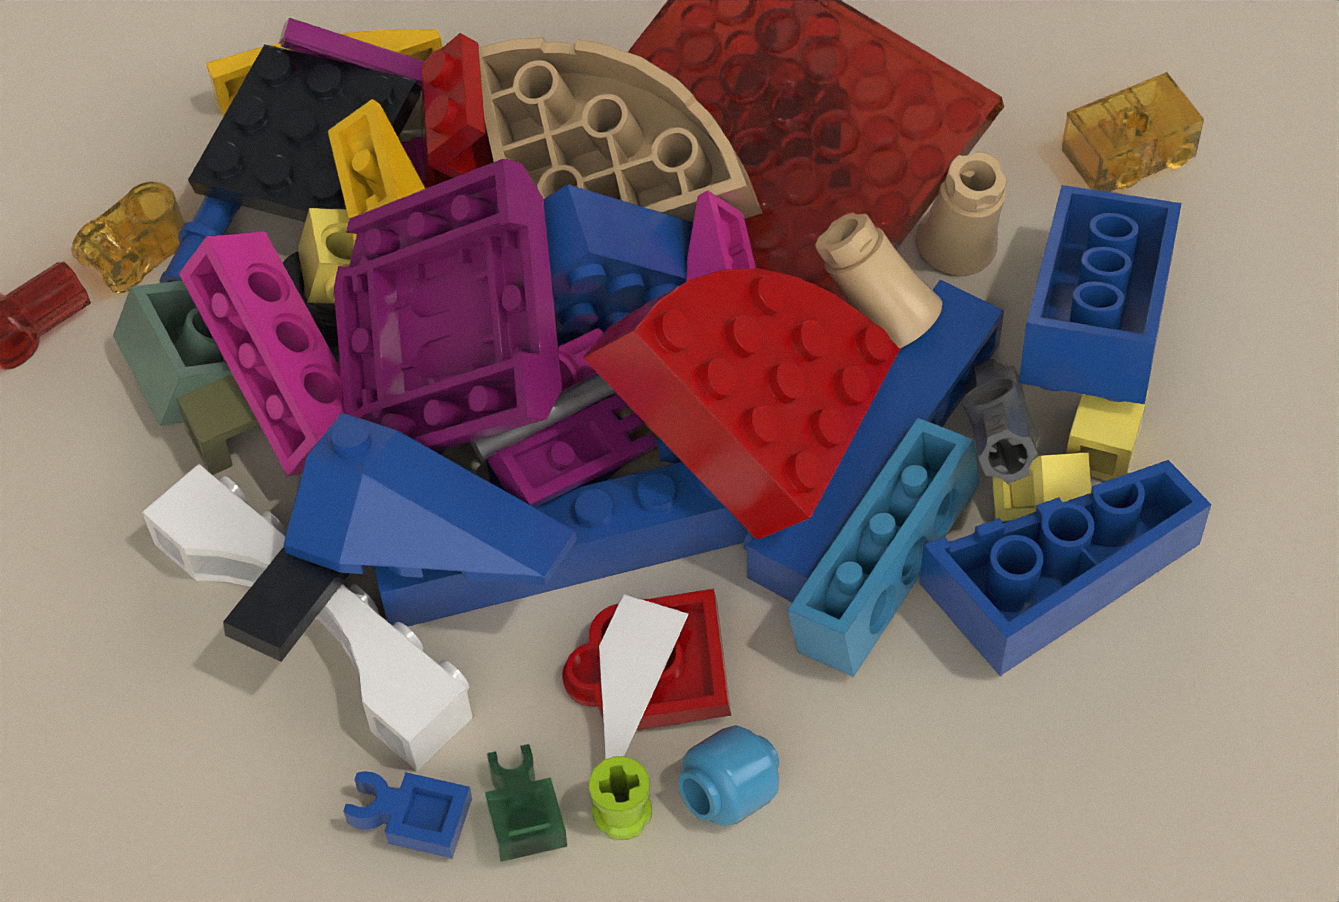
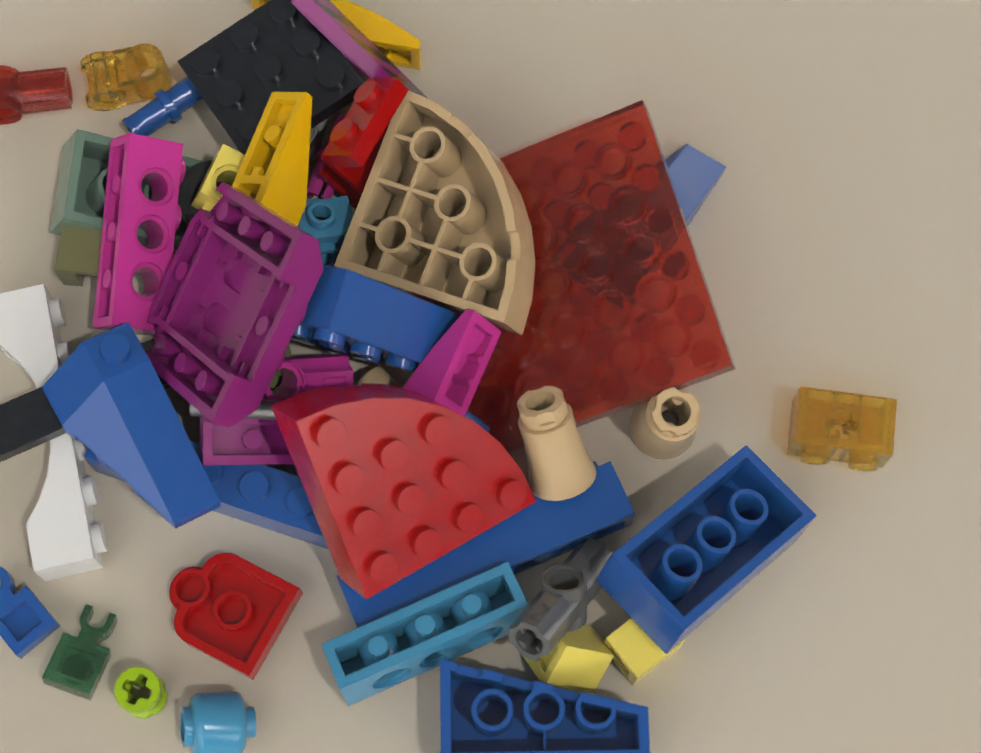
camera: 30 degrees right, 15 degrees up
(632, 664) = (215, 603): white sticker -> none

